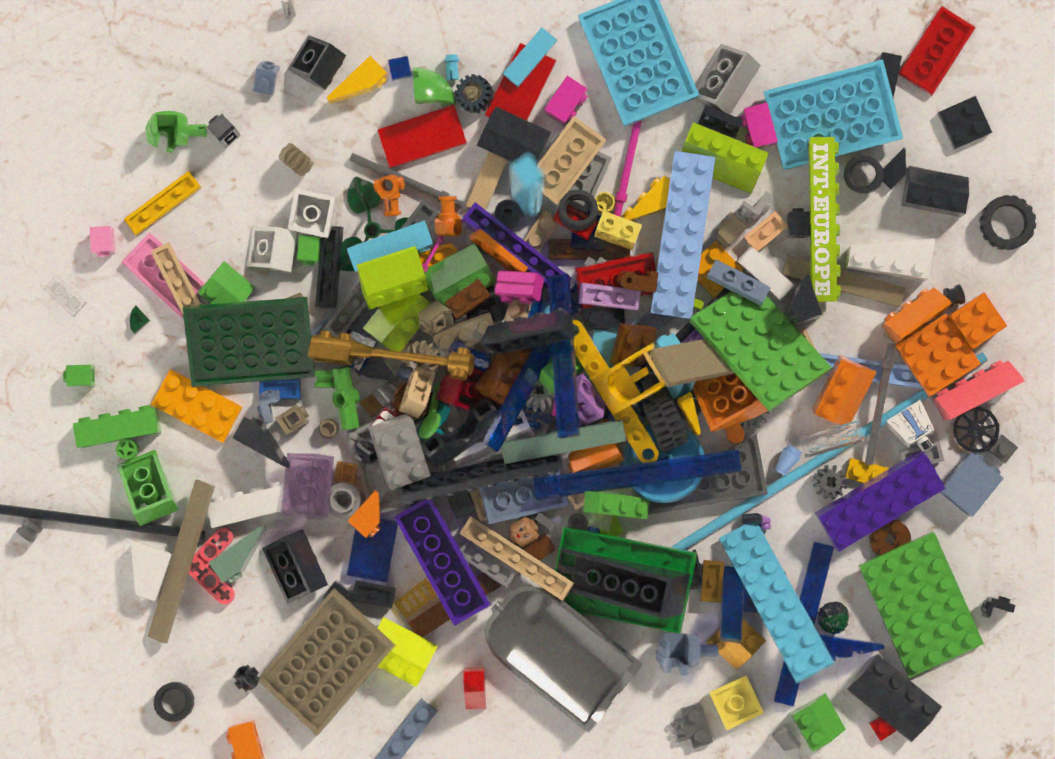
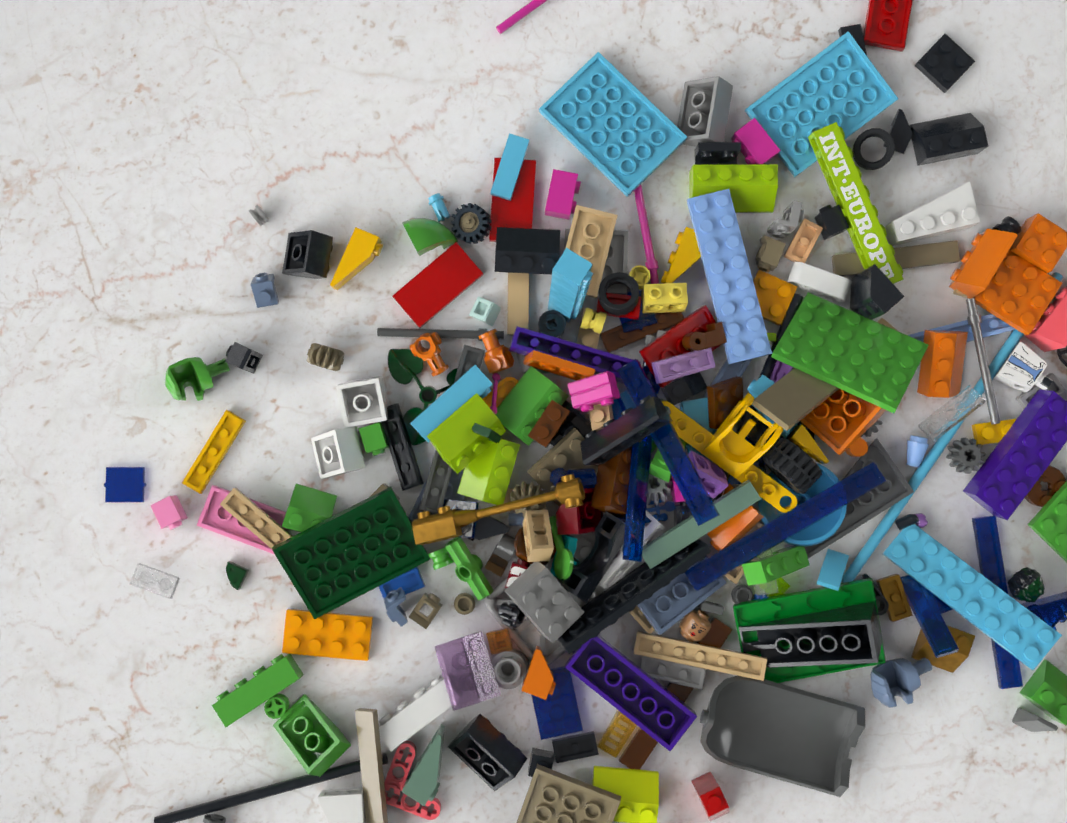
camera: 25 degrees left, 0 degrees up
(72, 200) = (125, 484): none -> clear blue piece
(79, 375) = (200, 653): bright green brick -> none
(260, 439) = (403, 644): black slope -> none
(399, 68) = (389, 228): clear blue tile -> none
(413, 288) = (486, 432): none -> dark green tile
(435, 318) = (524, 455): dark tan window -> none
(454, 177) = (485, 311): none -> light aqua slope
(461, 504) = (625, 627): black brick -> none
(546, 224) = (593, 320): none -> light yellow wheel
(666, 531) = (832, 569): none -> medium azure slope
(693, 726) = (934, 745): dark grey hinge -> none
(736, 702) = (967, 705): light yellow plate -> none
(738, 282) = (801, 300): sand blue plate -> none
(1026, 212) = (1042, 127): black tyre -> none

